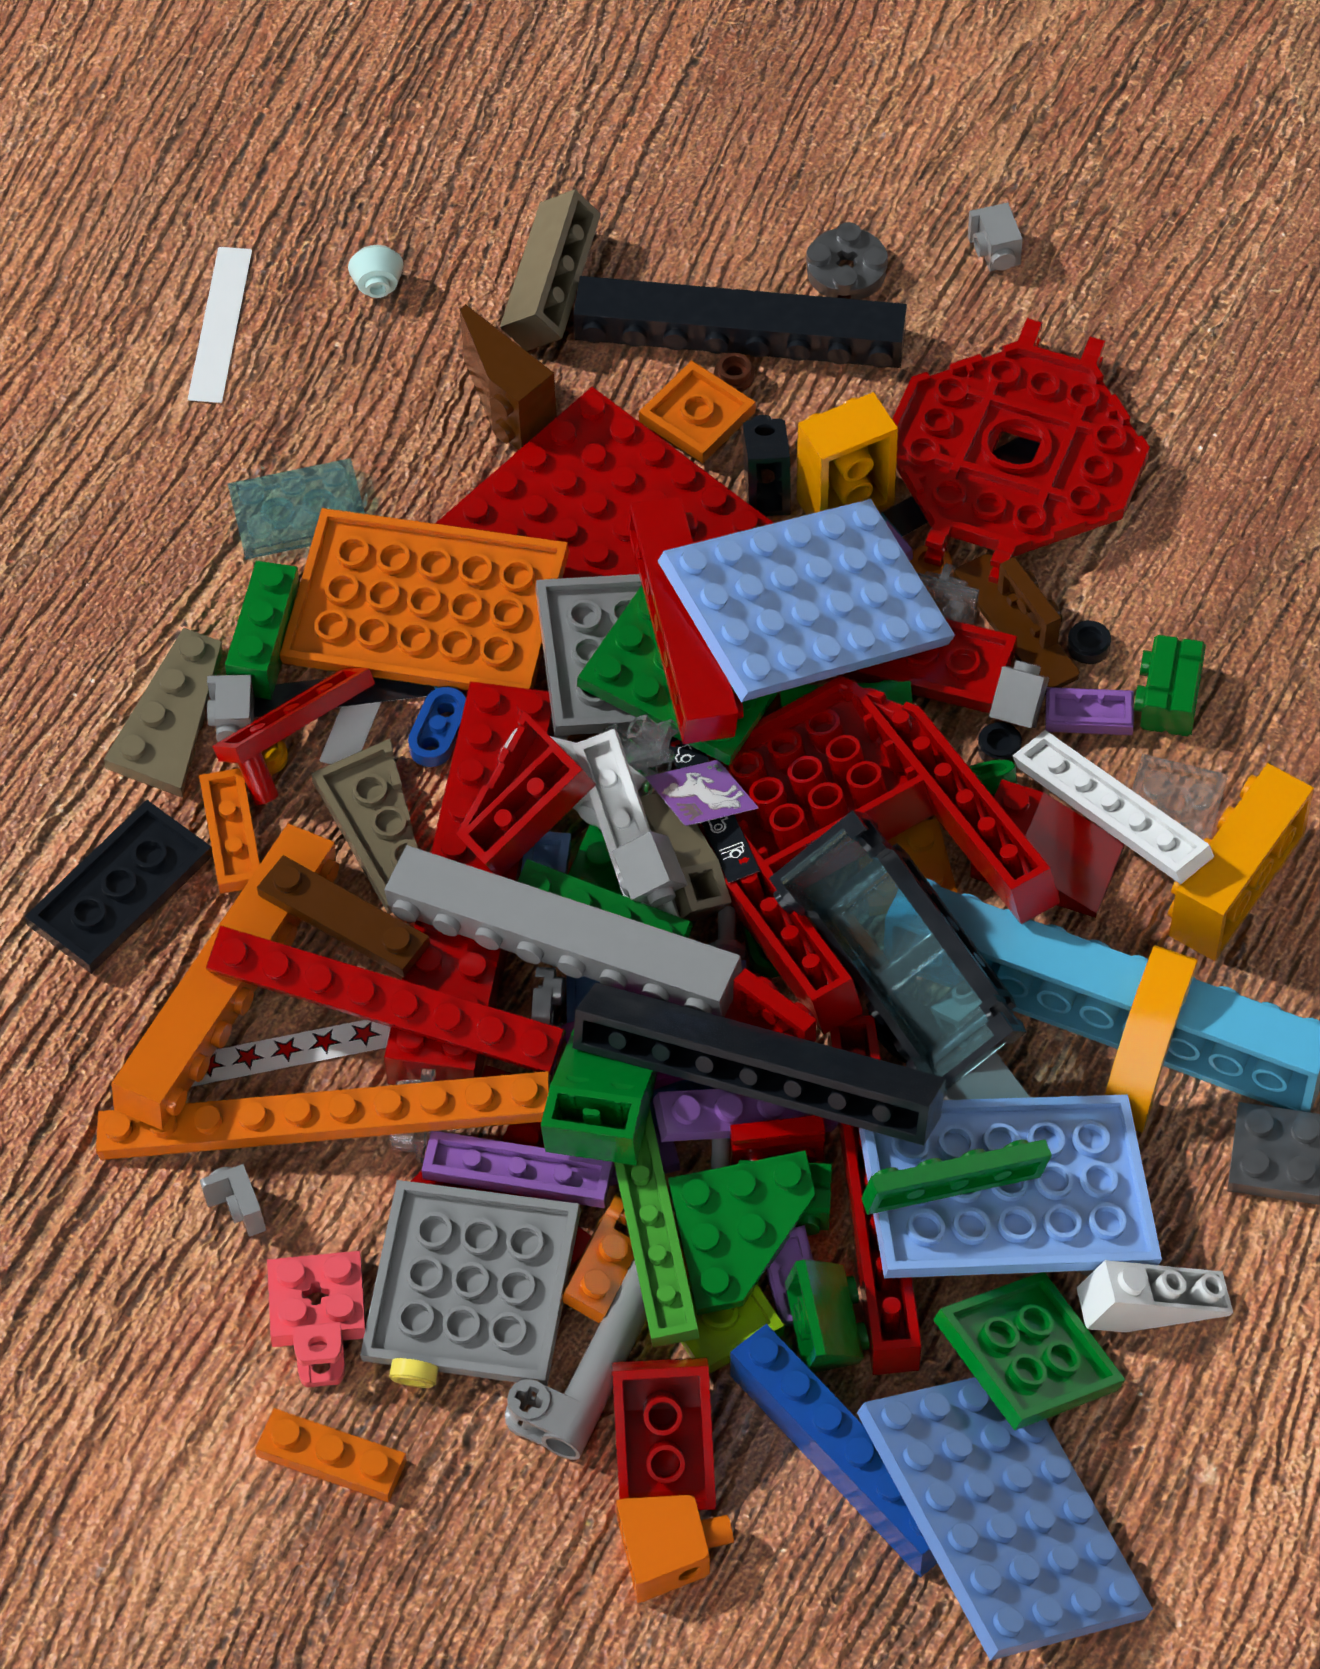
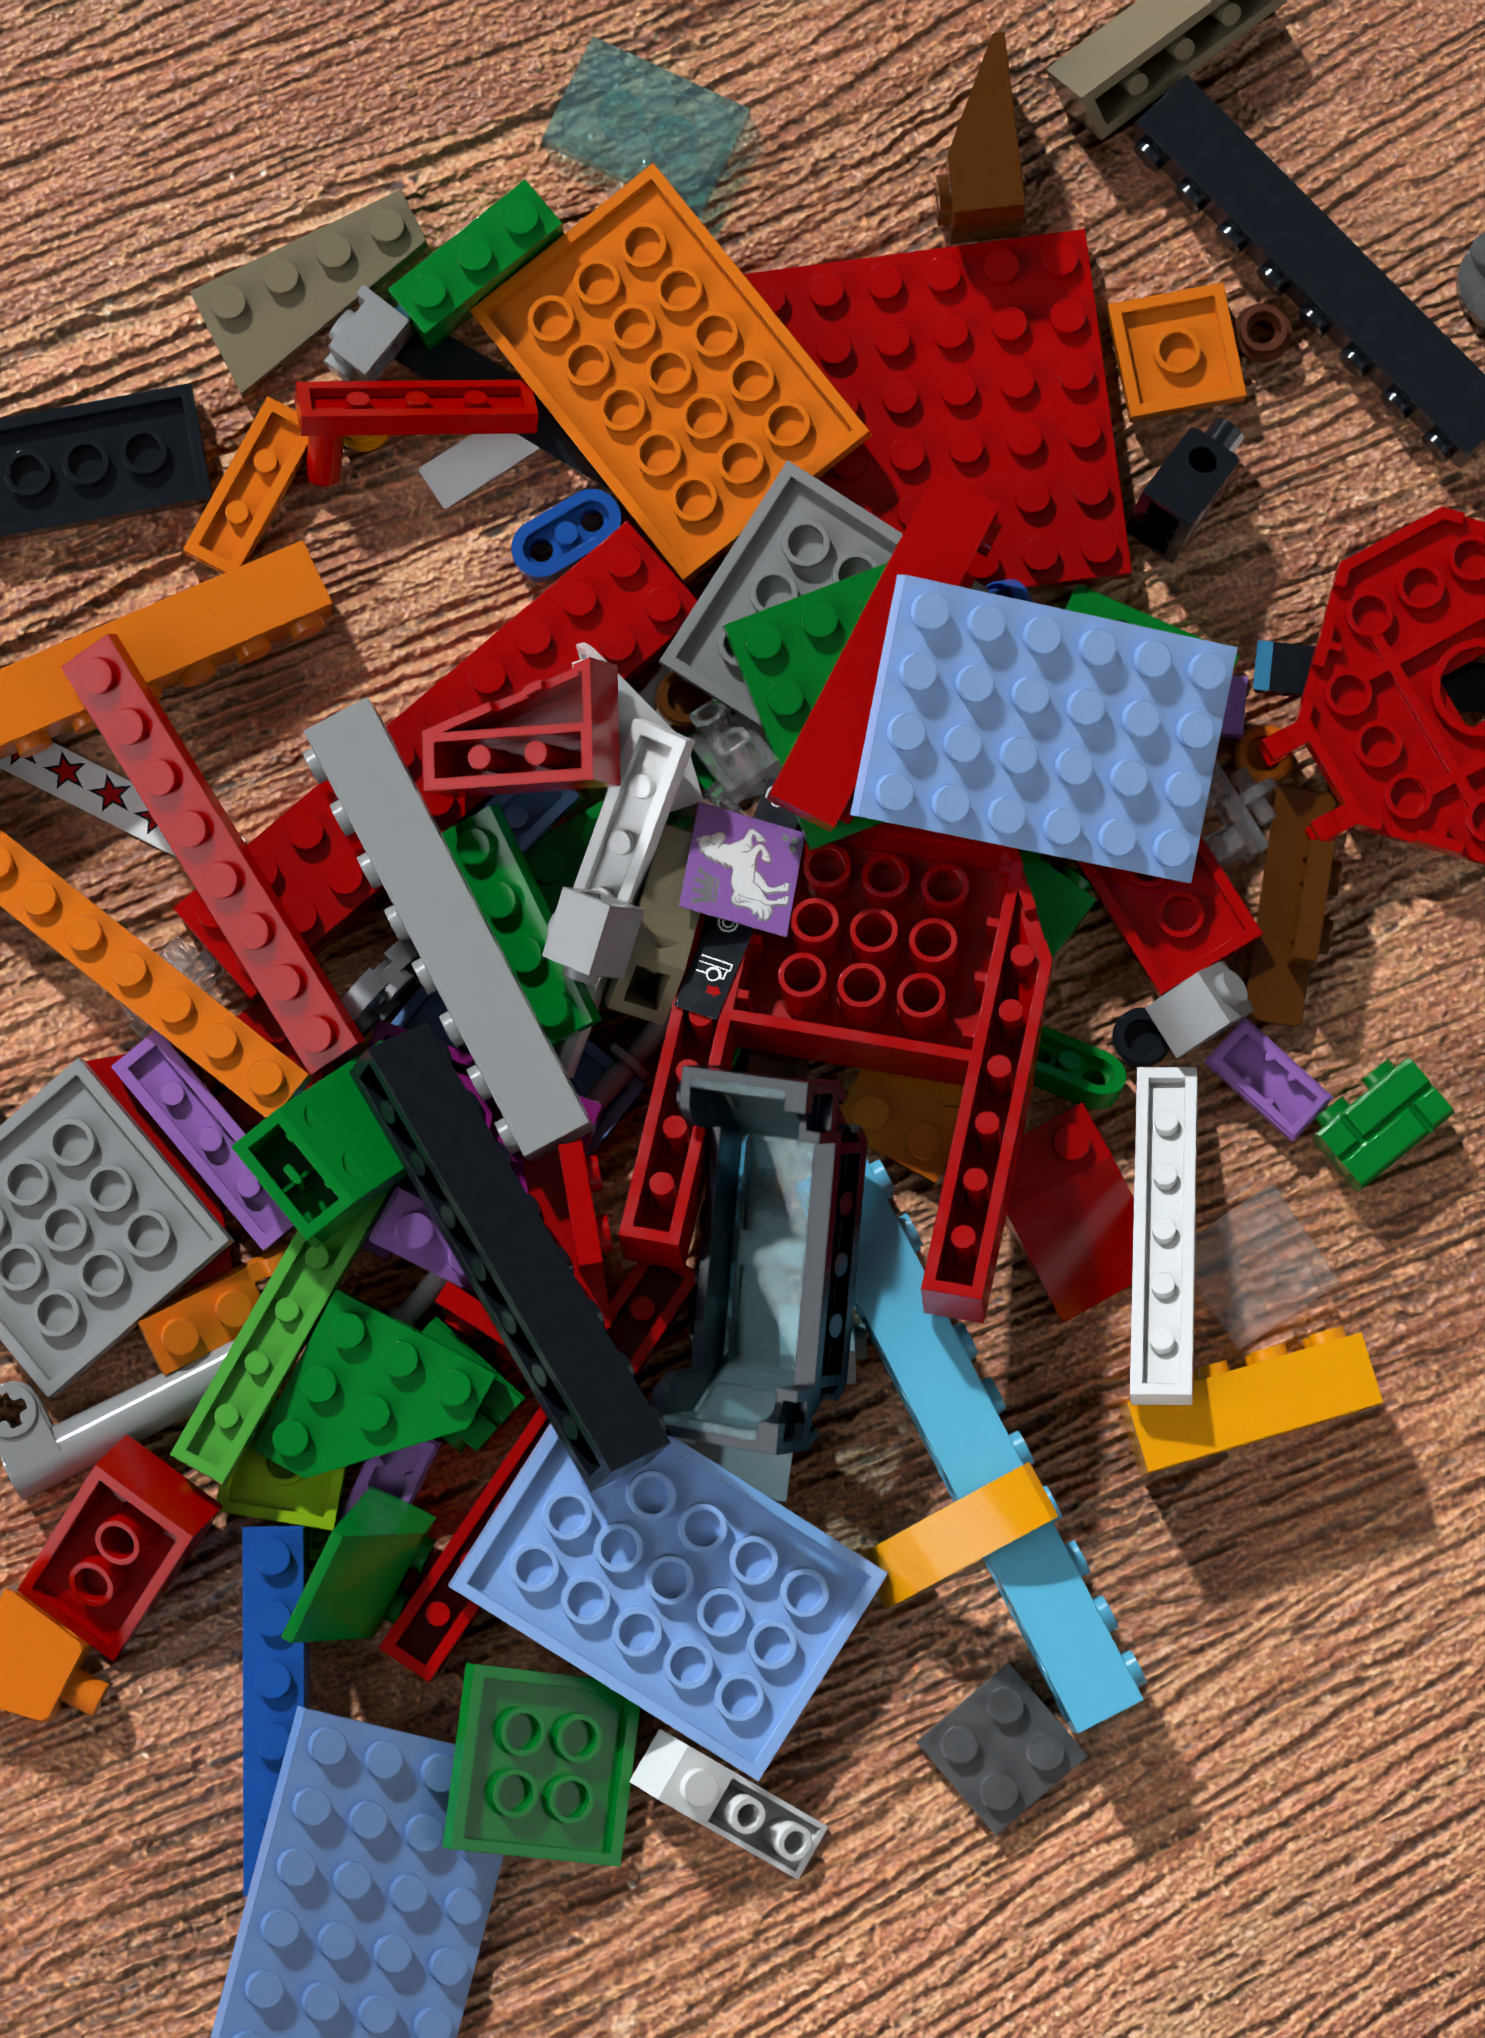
camera: 40 degrees right, 25 degrees up
(343, 916) = (256, 712): reddish brown plate -> none
(369, 810) = (410, 591): dark tan wing -> none
(847, 456) = (1256, 573): light orange brick -> none
(957, 1176) = (628, 1552): green plate -> none
(1089, 642) = (1348, 991): black tile -> none

